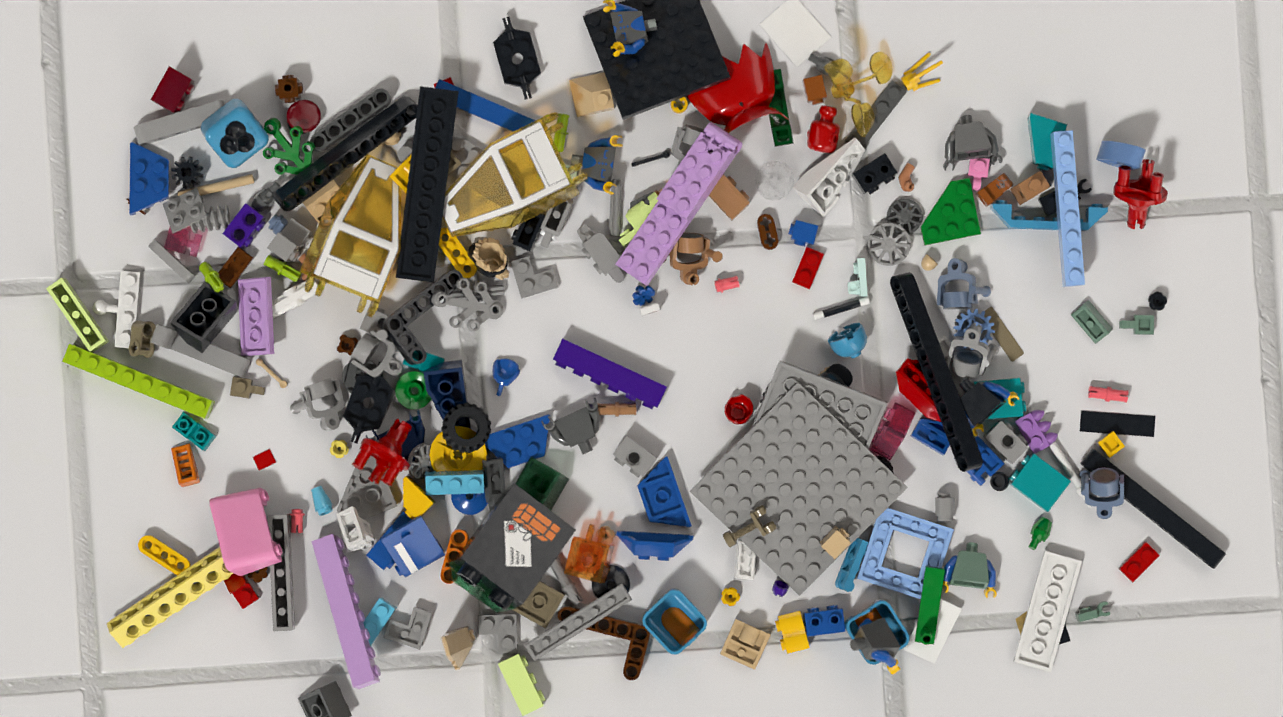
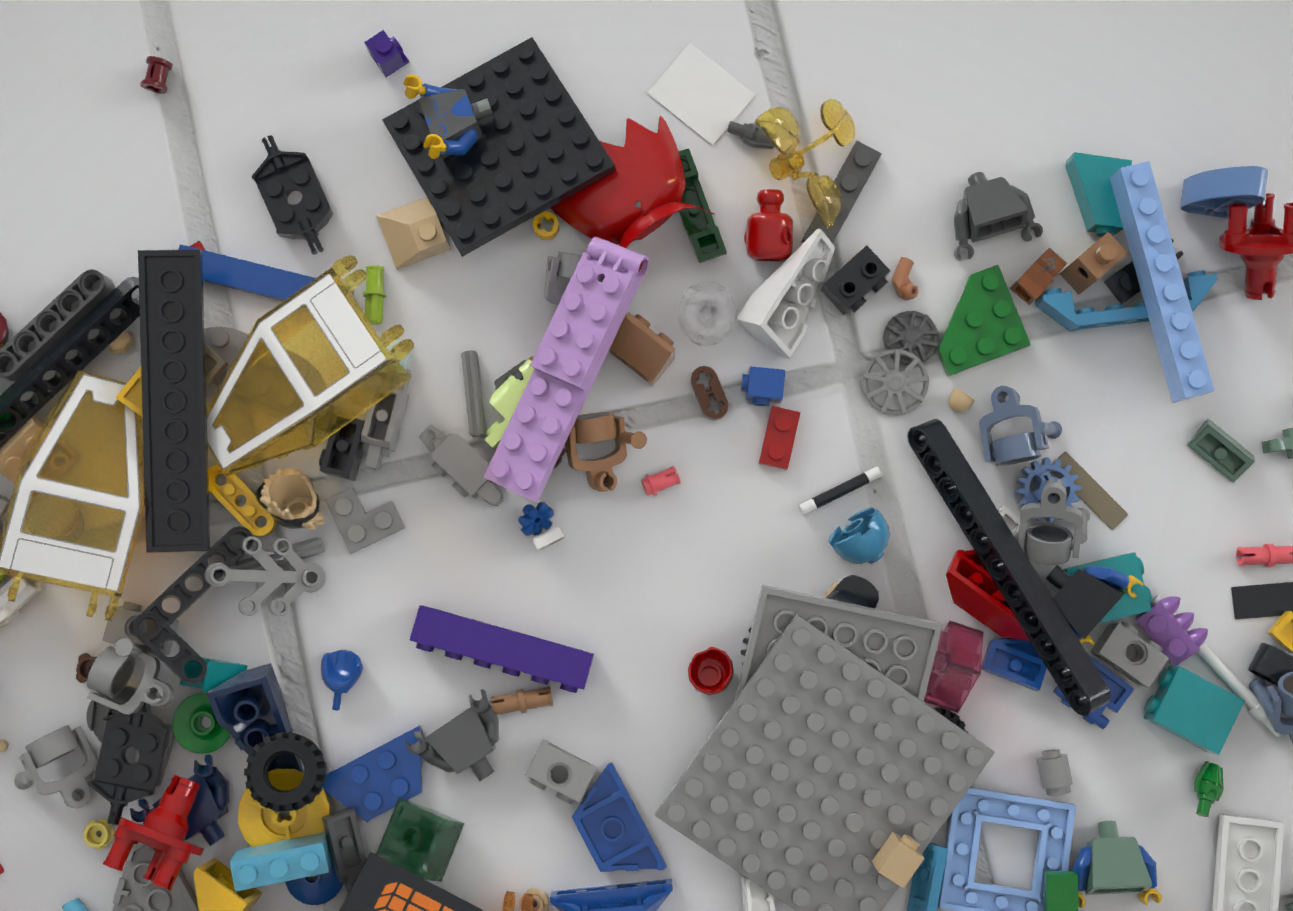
camera: 10 degrees left, 5 degrees down
(421, 462) = (226, 835): light grey wheel -> none
(599, 163) = (438, 329): torso -> none
(666, 154) = (537, 303): black hinge -> none
(731, 538) = (769, 831): dark tan bar -> none
(814, 89) = (744, 171): dark orange brick -> none
(859, 286) = (864, 452): light aqua hinge -> none
(911, 79) = (885, 135): yellow plant -> none
(978, 169) = (1009, 251): bright pink plate -> none
(999, 481) = (1131, 717): black plate -> none

